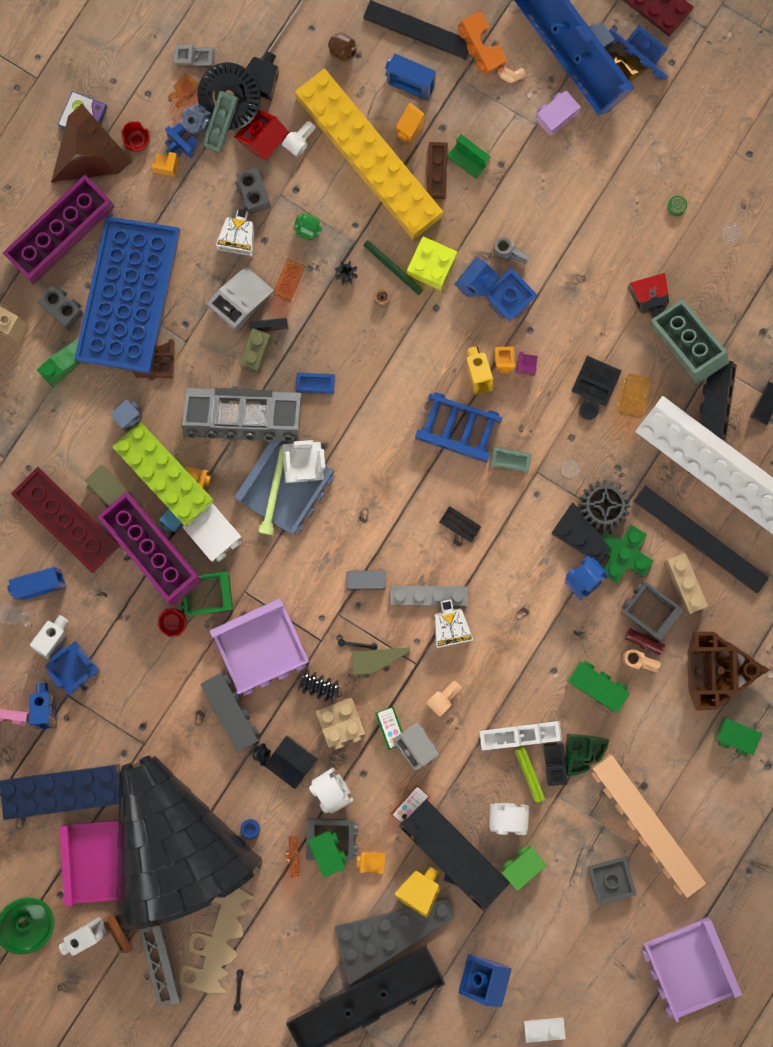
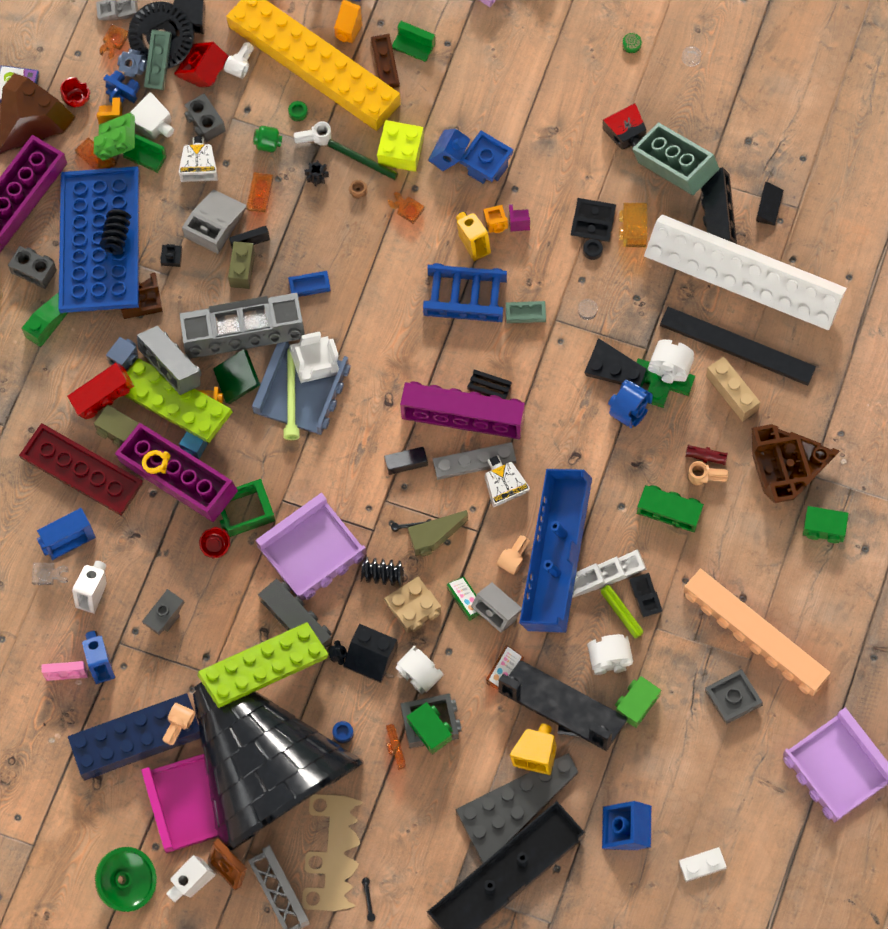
camera: 15 degrees left, 15 degrees down
(71, 668) = (119, 612): blue panel -> none
(98, 450) = (100, 391): none -> red brick
(102, 793) = (180, 718): none -> light nougat axle
(110, 681) = (164, 613): none -> dark grey brick
(136, 546) = (161, 468): none -> yellow piece
(140, 294) = (115, 231): none -> black piece
(142, 205) = (86, 152): none -> clear orange plate
(163, 194) = (115, 137): none -> bright green plate
(166, 434) = (169, 360): none -> brick
(187, 761) = (262, 665): none -> lime plate
(189, 214) = (146, 154): none -> green panel
(192, 324) = (171, 255): none -> black tile
(202, 179) = (152, 118): none -> white torso
(213, 534) = (237, 448): white brick -> none
(227, 463) = (236, 376): none -> dark green tile
(343, 203) = (298, 111): none -> green tile
(350, 232) = (313, 135): none -> white axle
(371, 862) = (478, 736): light orange bracket -> none
(425, 329) = (408, 208): none -> clear orange plate
(429, 548) = (462, 410): none -> magenta brick
(483, 706) = (556, 551): none -> blue piece
(512, 252) = (476, 119): light grey axle -> none
(582, 752) = (671, 577): dark green brick -> none
(604, 497) = (646, 329): dark grey gear -> none
(635, 548) = (671, 361): none -> white brick
(668, 621) = (709, 407): dark grey window -> none

